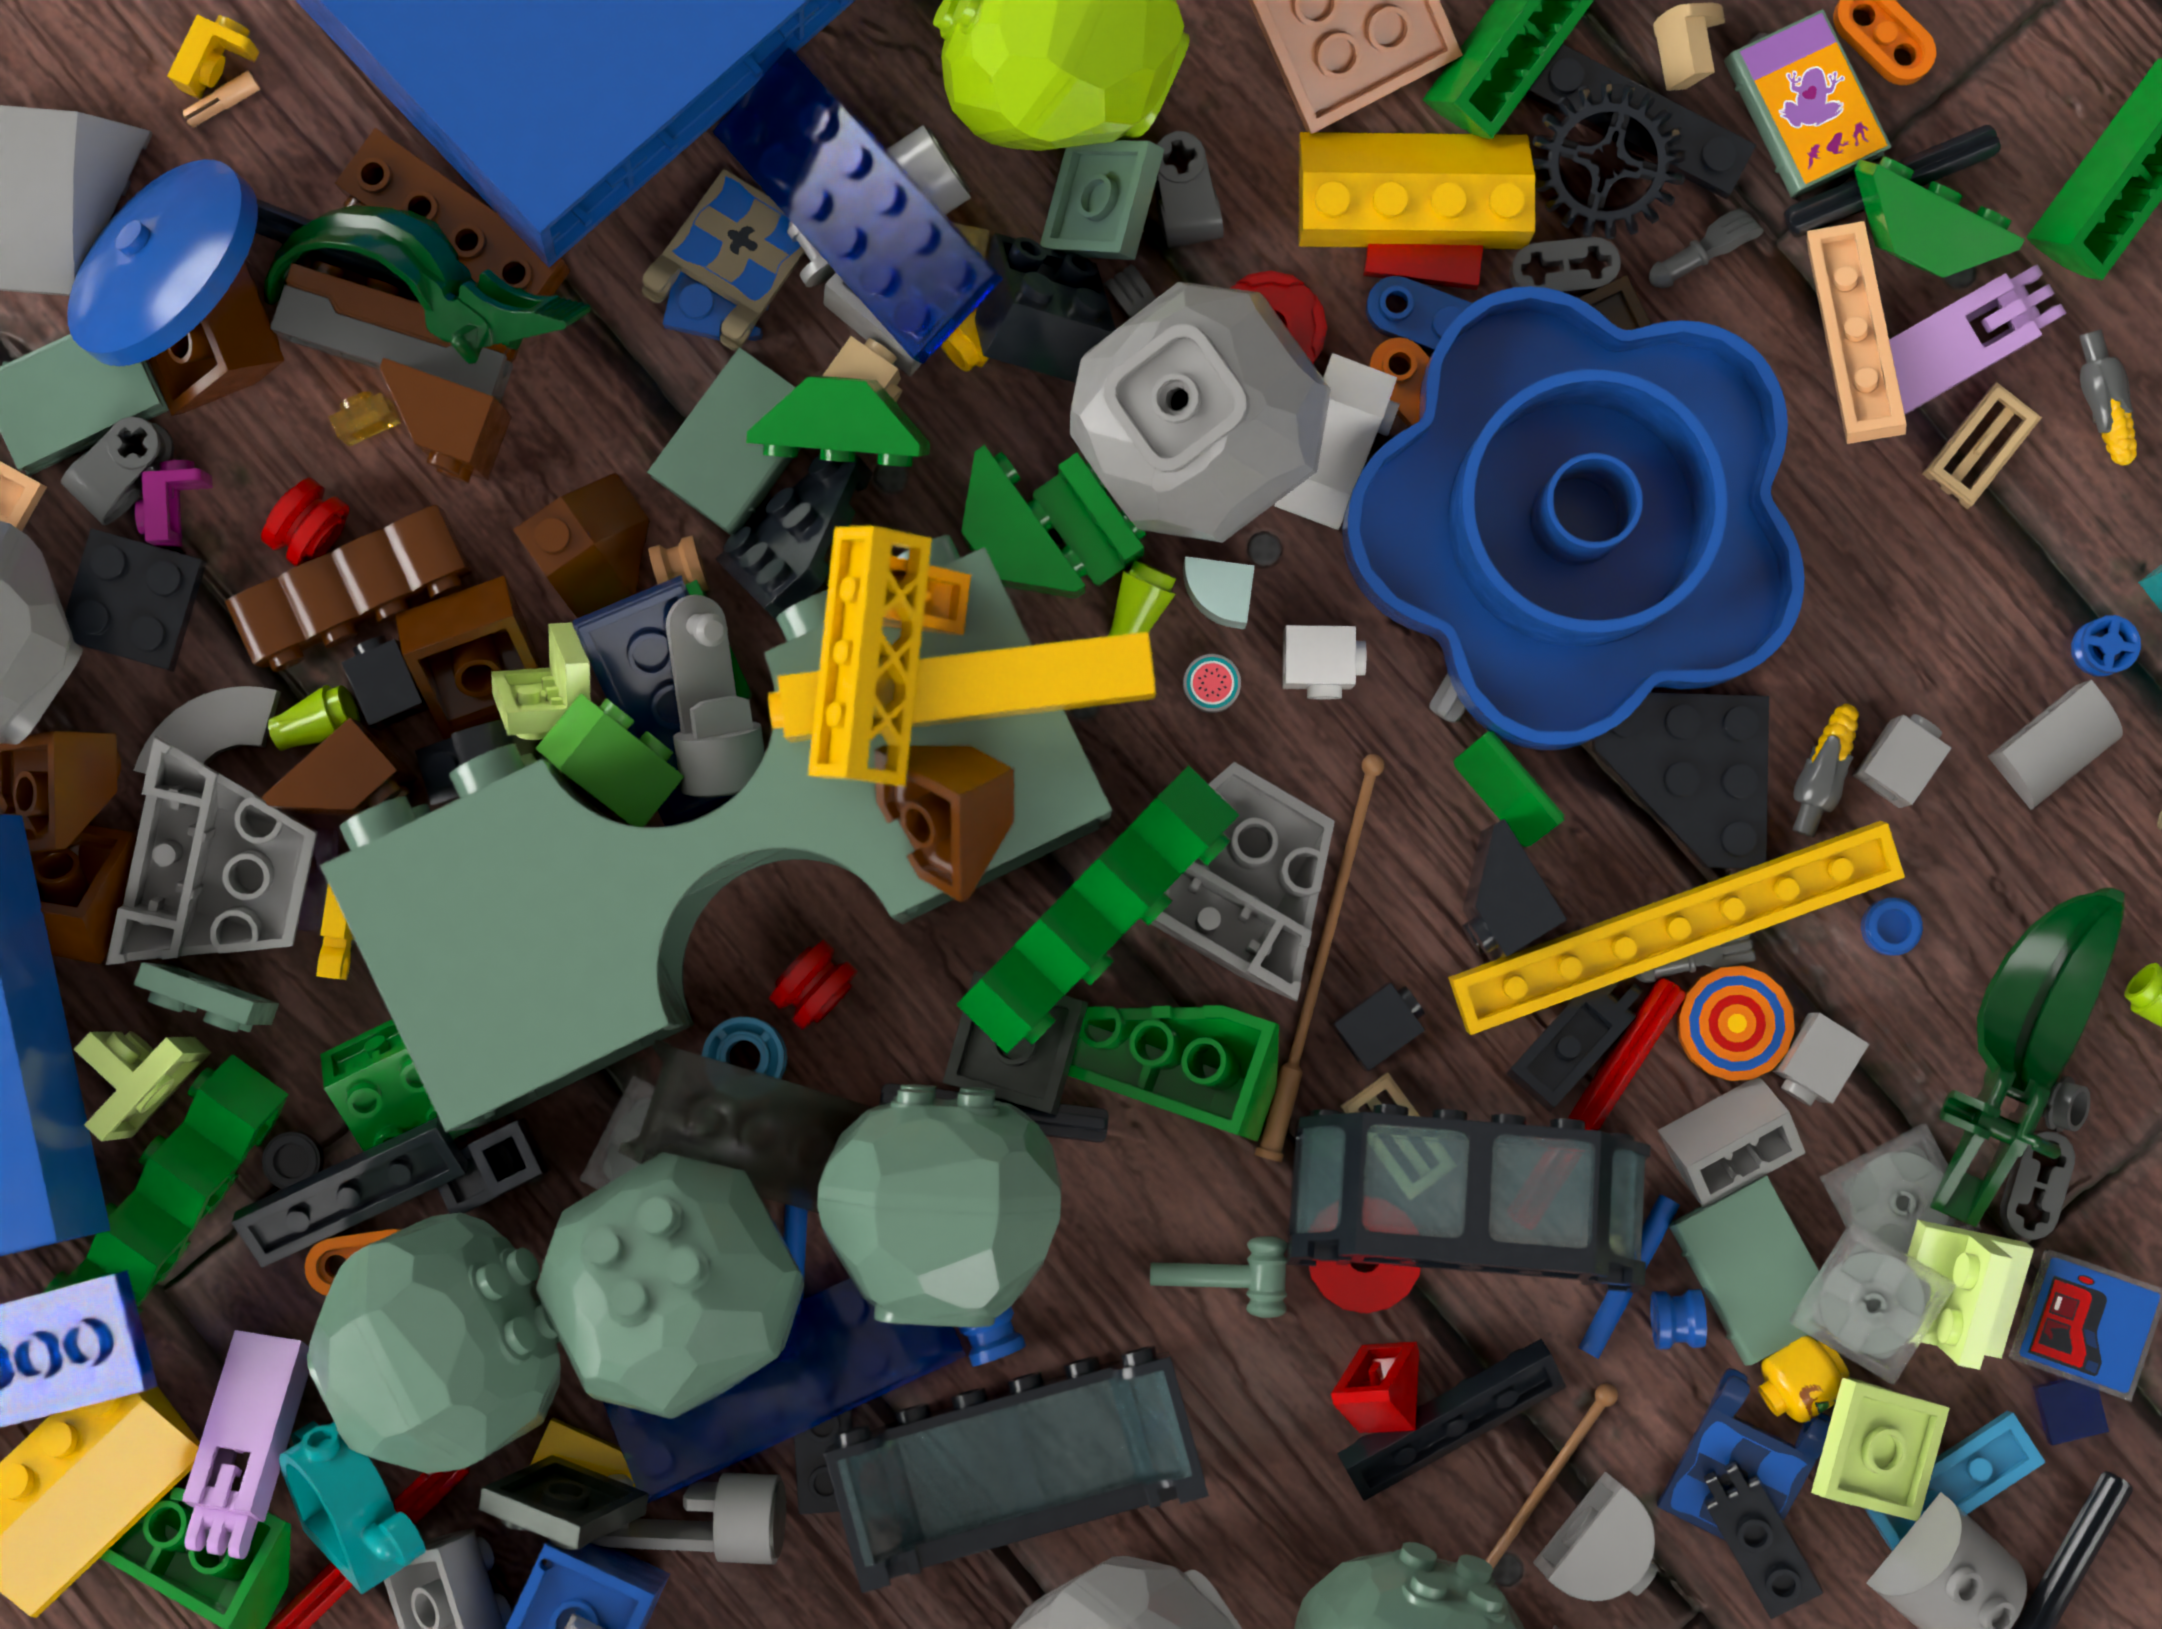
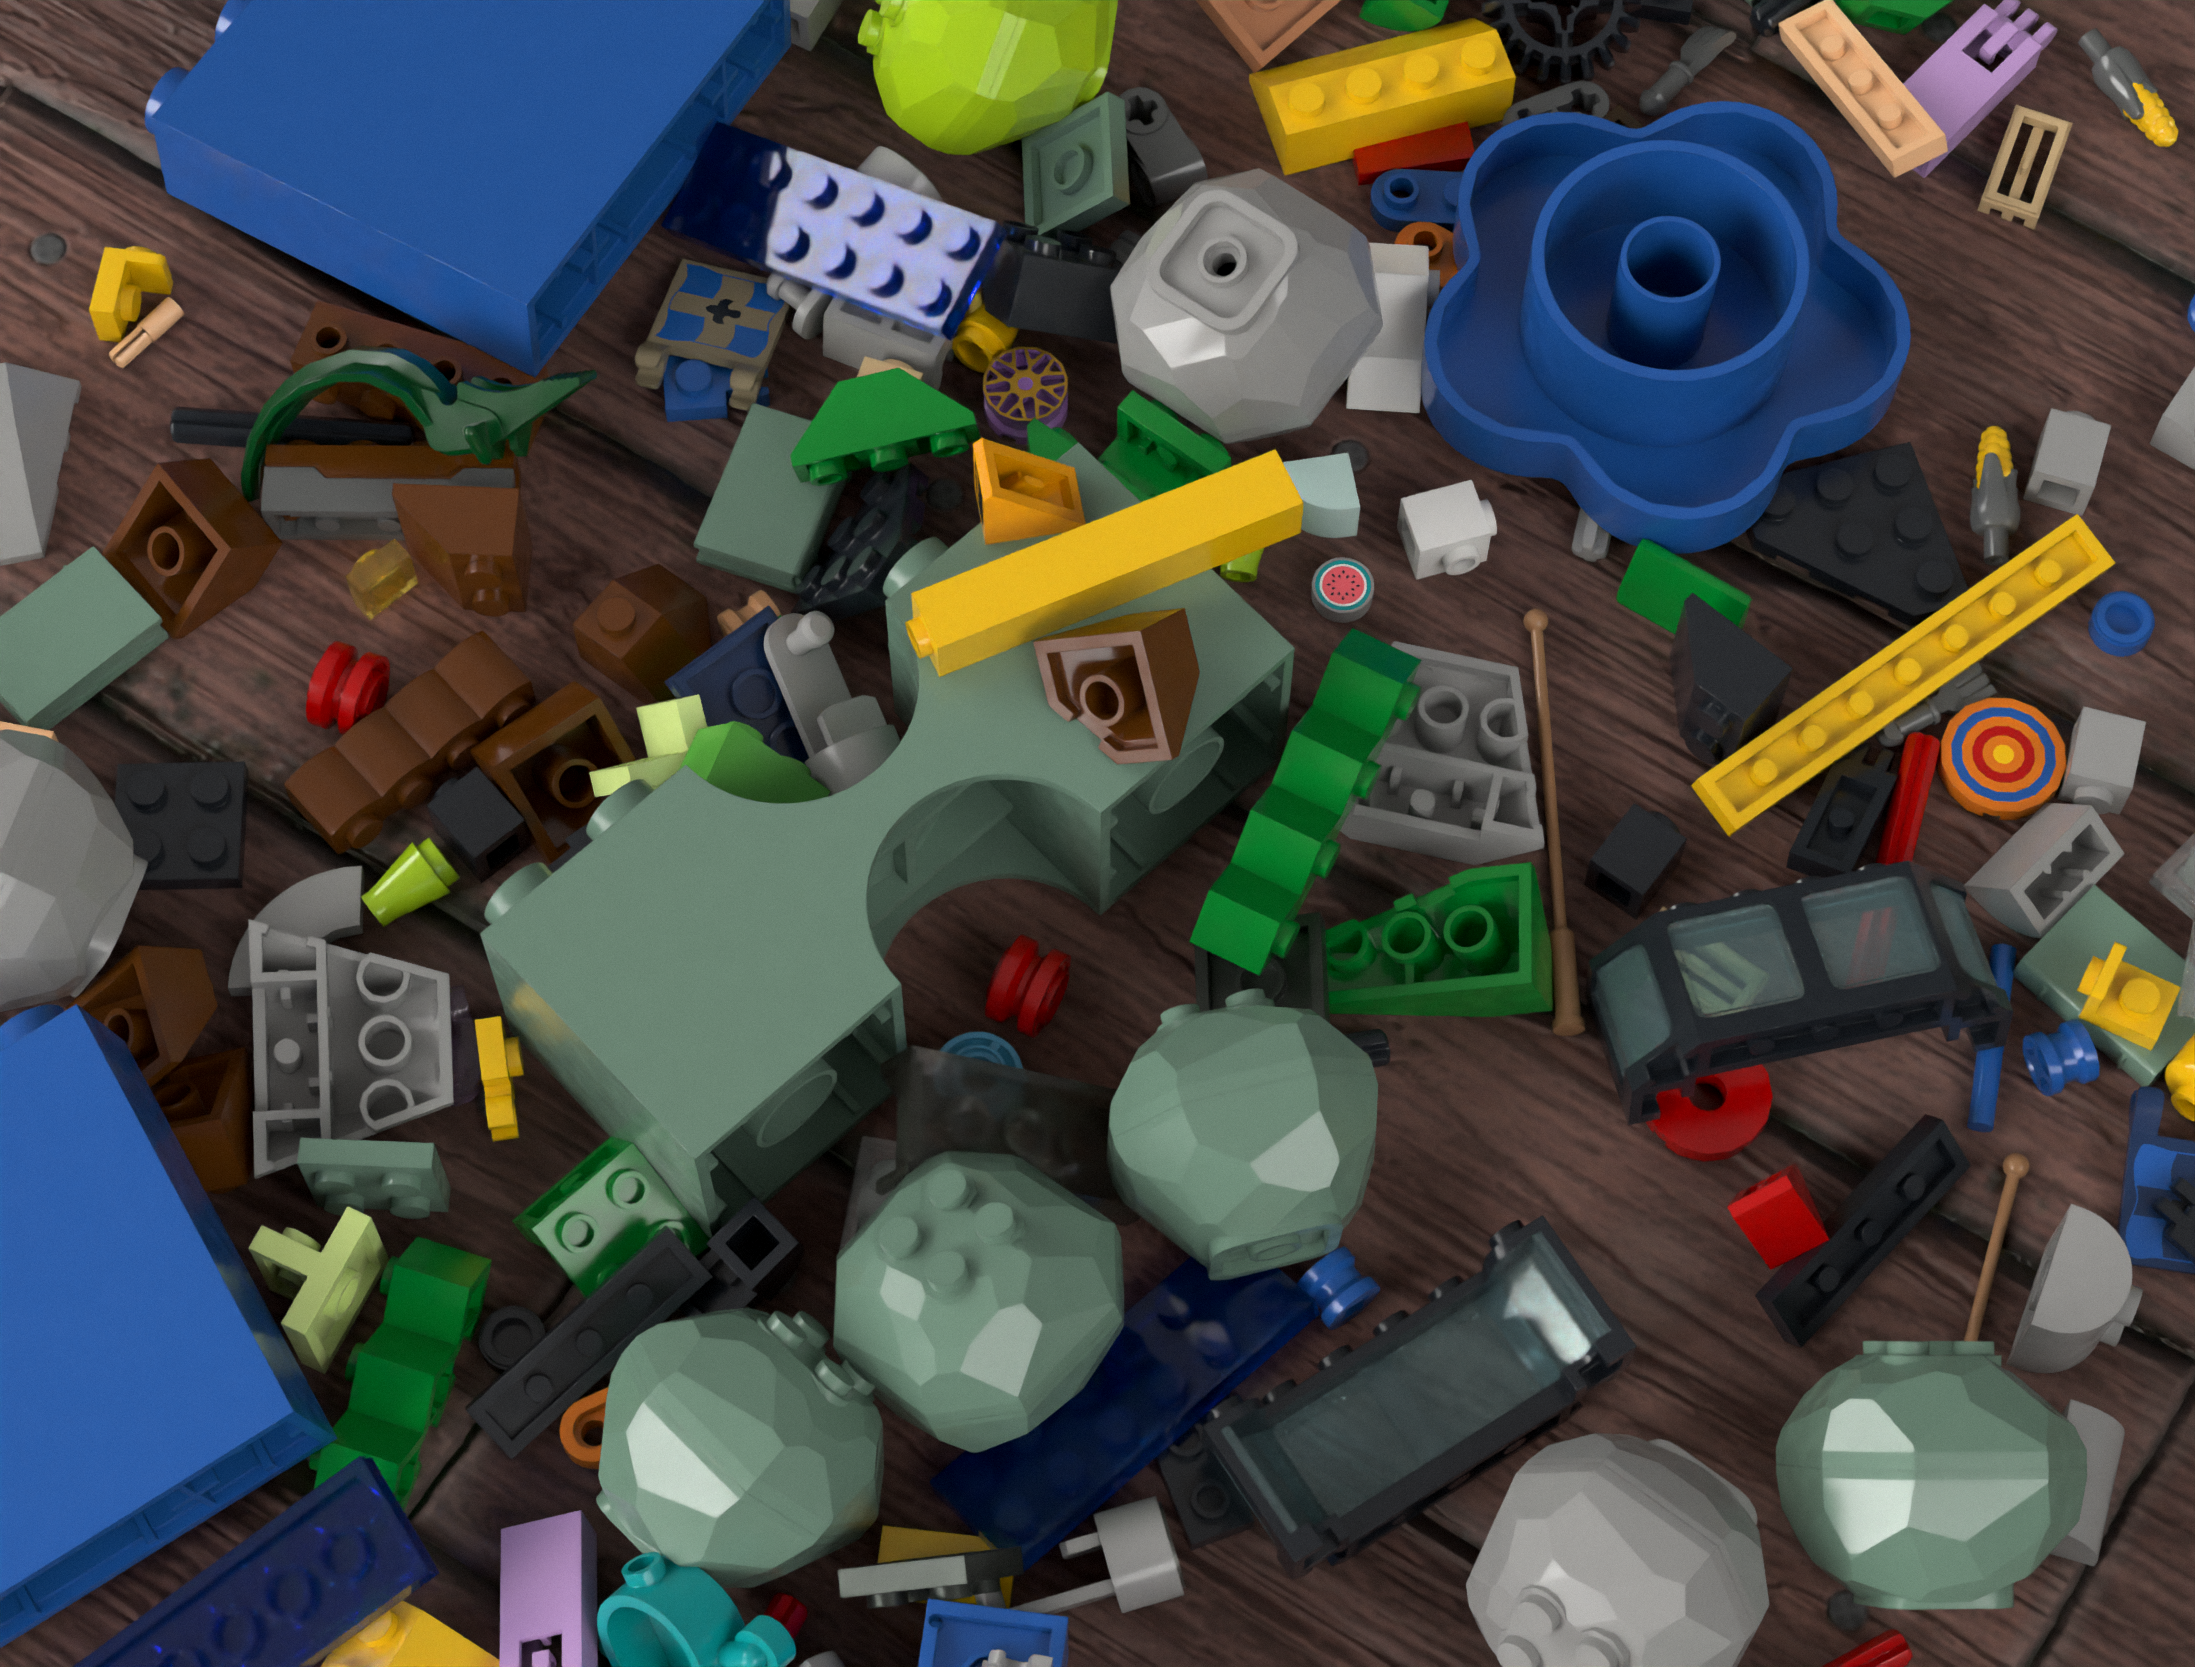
camera: 15 degrees left, 20 degrees down
(111, 473) = (128, 703): dark grey piece -> none
(159, 510) = (189, 694): magenta bracket -> none
(162, 263) = (133, 469): blue dish -> none
(343, 775) = (447, 911): reddish brown slope -> none
(858, 653) = (986, 536): yellow fence -> none
(989, 406) = (1024, 389): none -> medium lavender wheel
(1263, 1276) = (1606, 1146): sand green piece -> none
(1751, 1294) = (2126, 998): none -> yellow bracket

